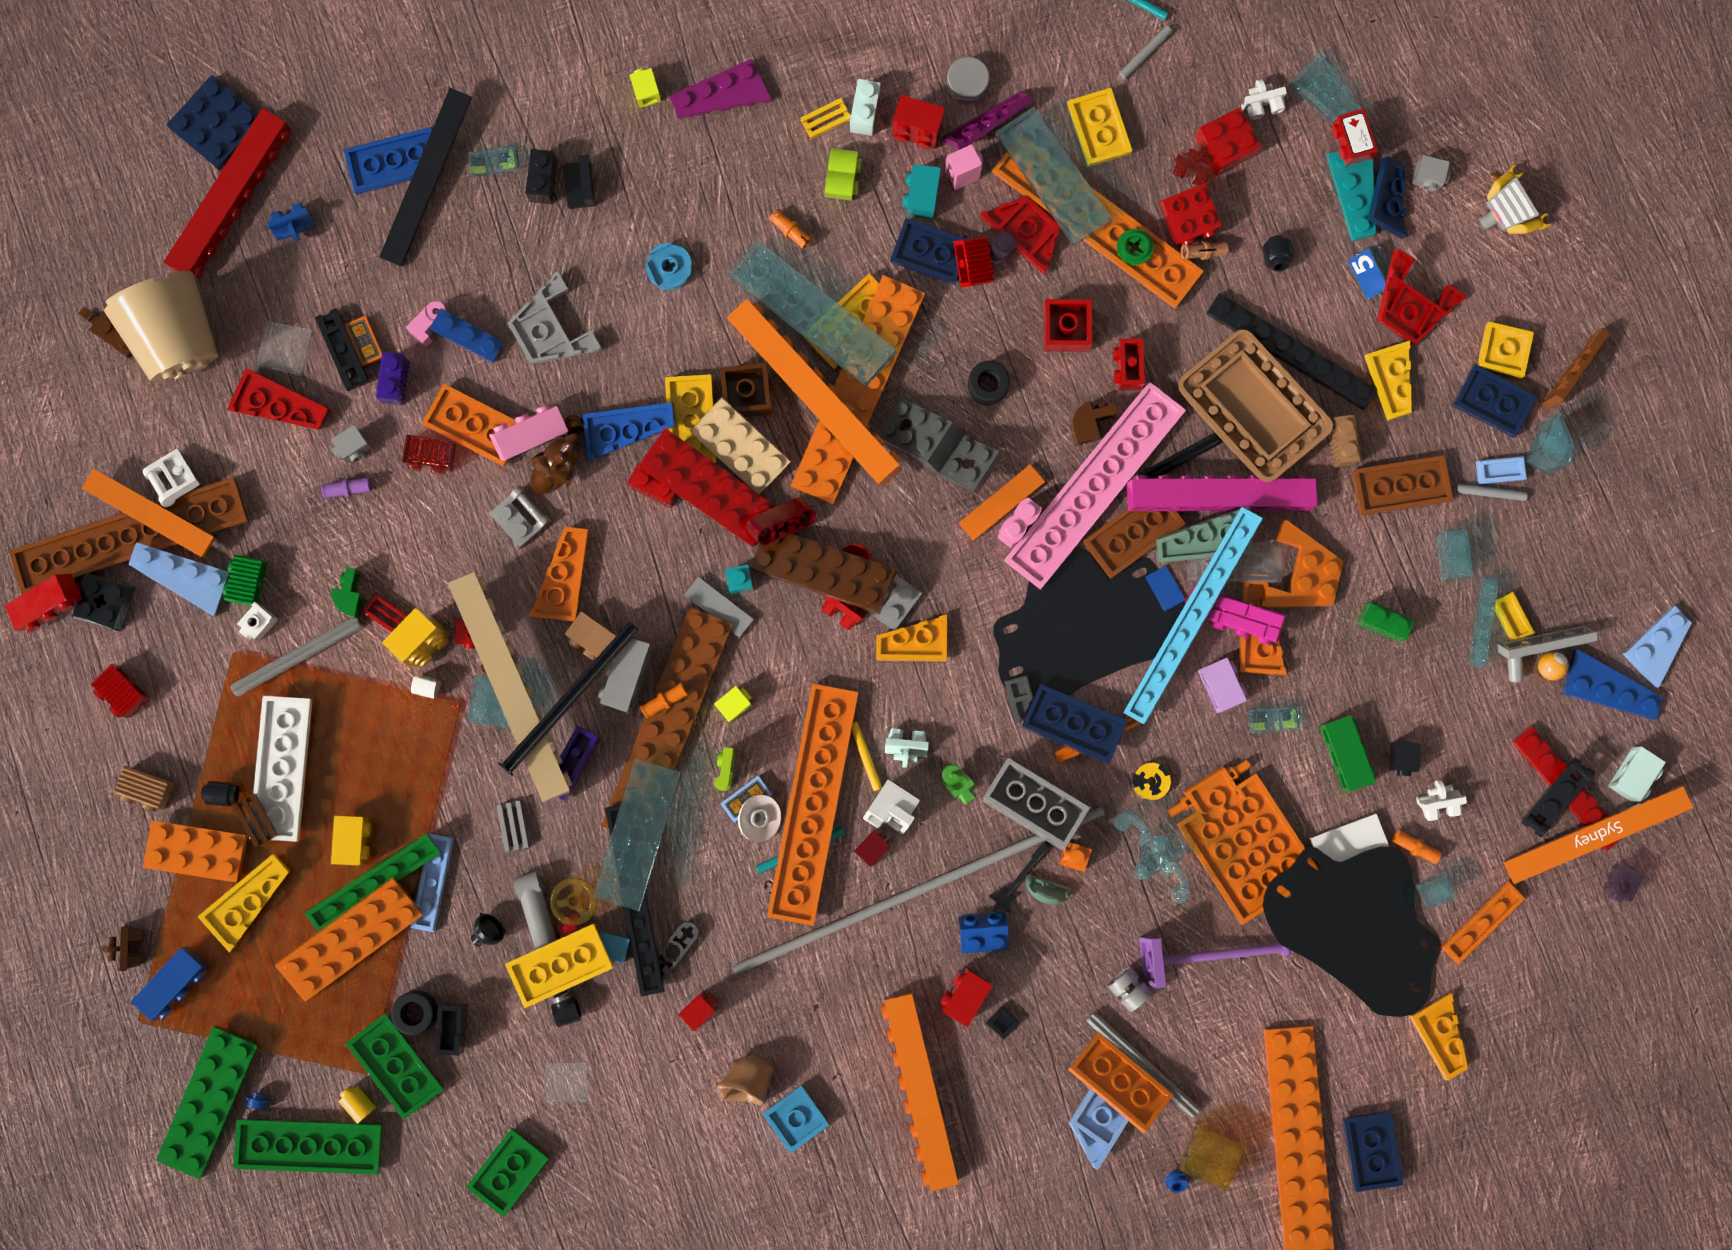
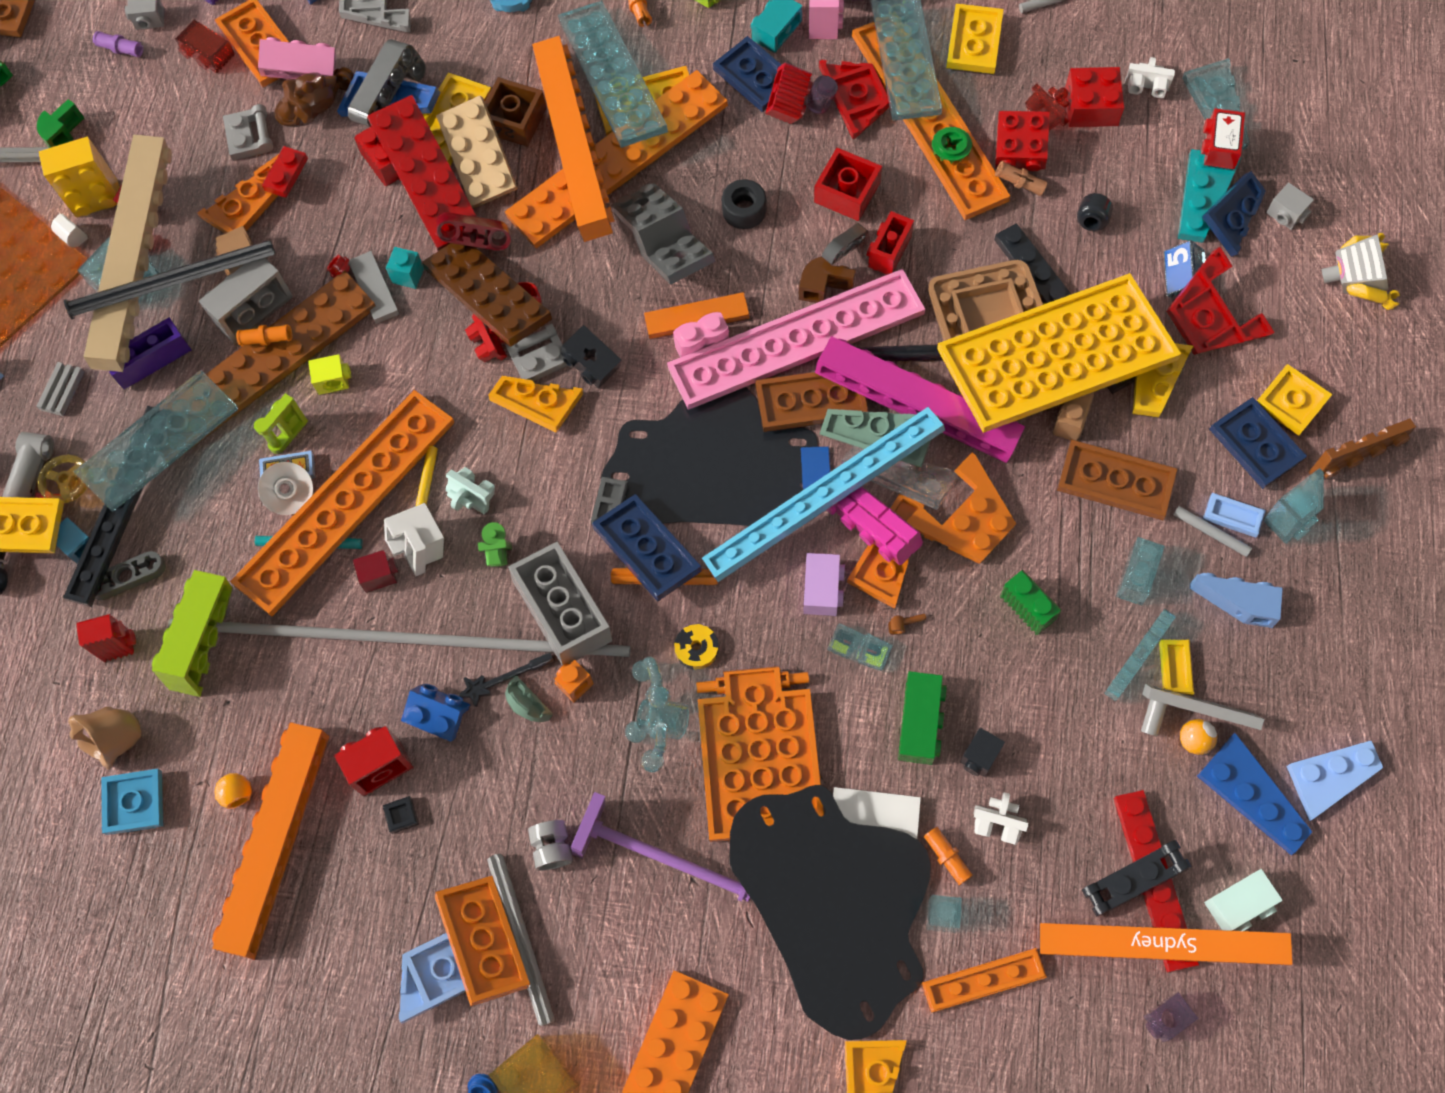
camera: 35 degrees right, 15 degrees down
(583, 542) = (284, 171): none -> red plate
(620, 419) = (384, 78): none -> dark grey beam
(680, 604) = (338, 265): none -> red plate
(765, 970) = (192, 633): none -> lime wedge
(868, 1071) = (233, 790): none -> light orange piece
(953, 583) = (586, 344): none -> black brick
(1095, 384) = (844, 243): none -> dark grey beam
(1293, 688) = (897, 623): none -> dark orange hand
(1315, 405) = (1057, 352): none -> yellow plate
(1542, 541) = (1248, 602): none -> medium blue slope

